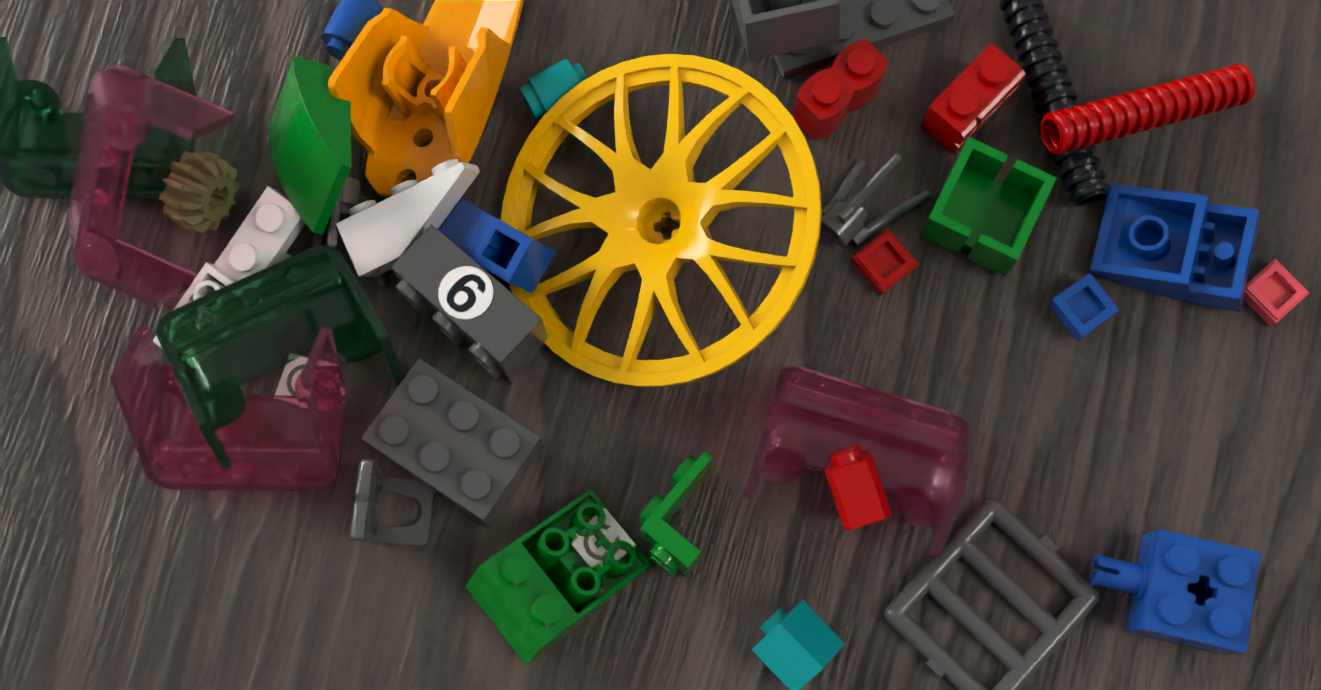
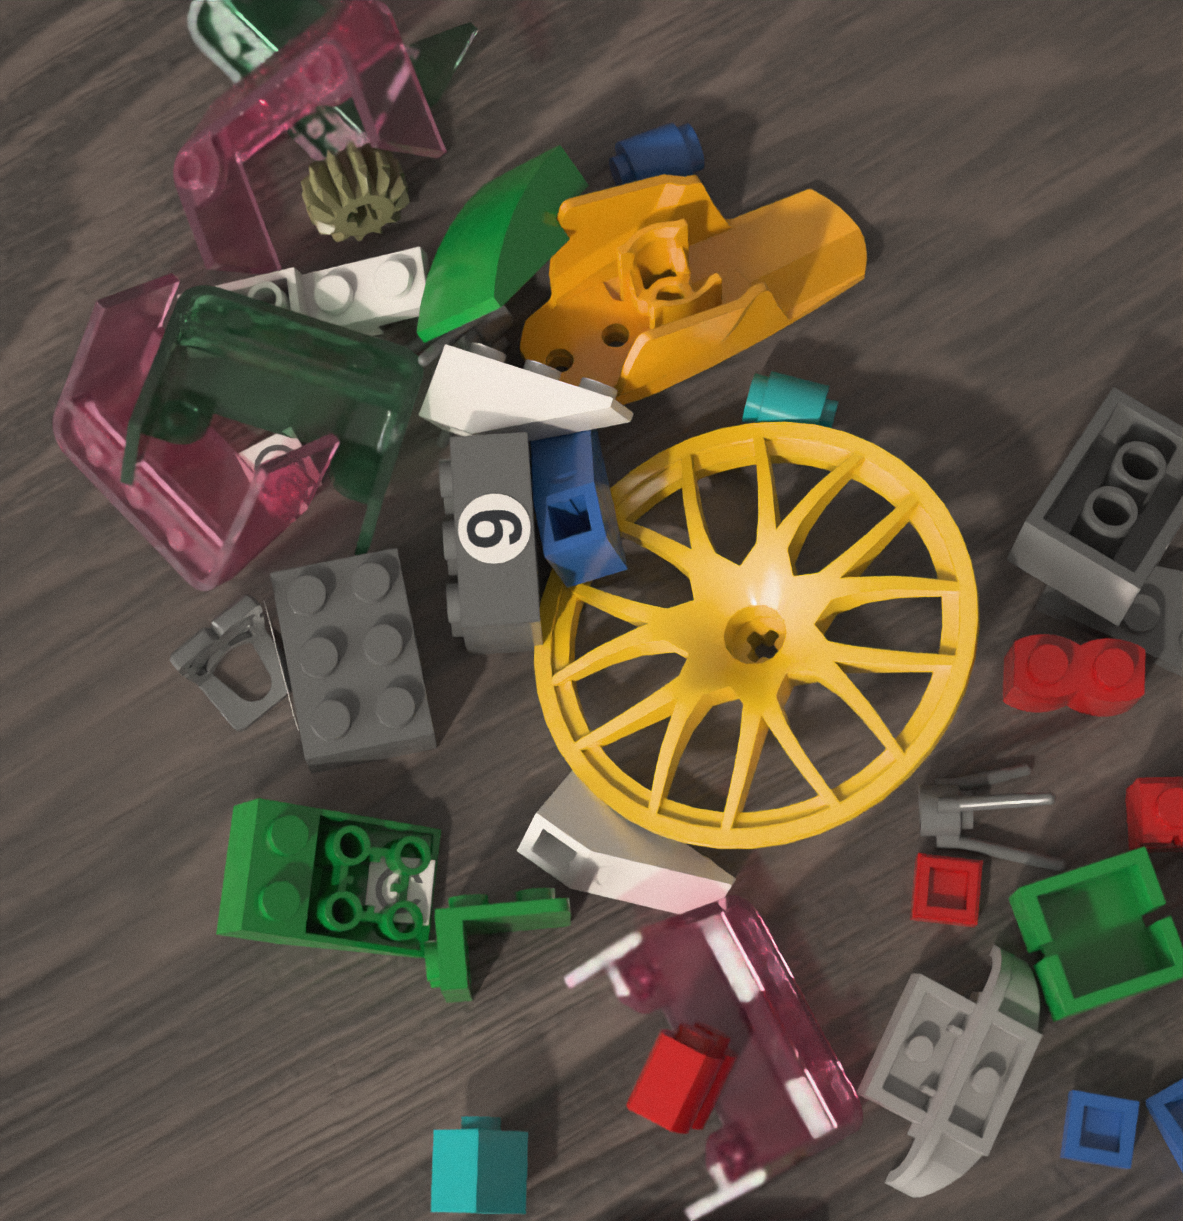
camera: 45 degrees right, 0 degrees up
(422, 488) = (281, 665): none -> white sticker
(694, 412) = (609, 856): none -> white slope
(983, 348) = (954, 1069): none -> light grey plate

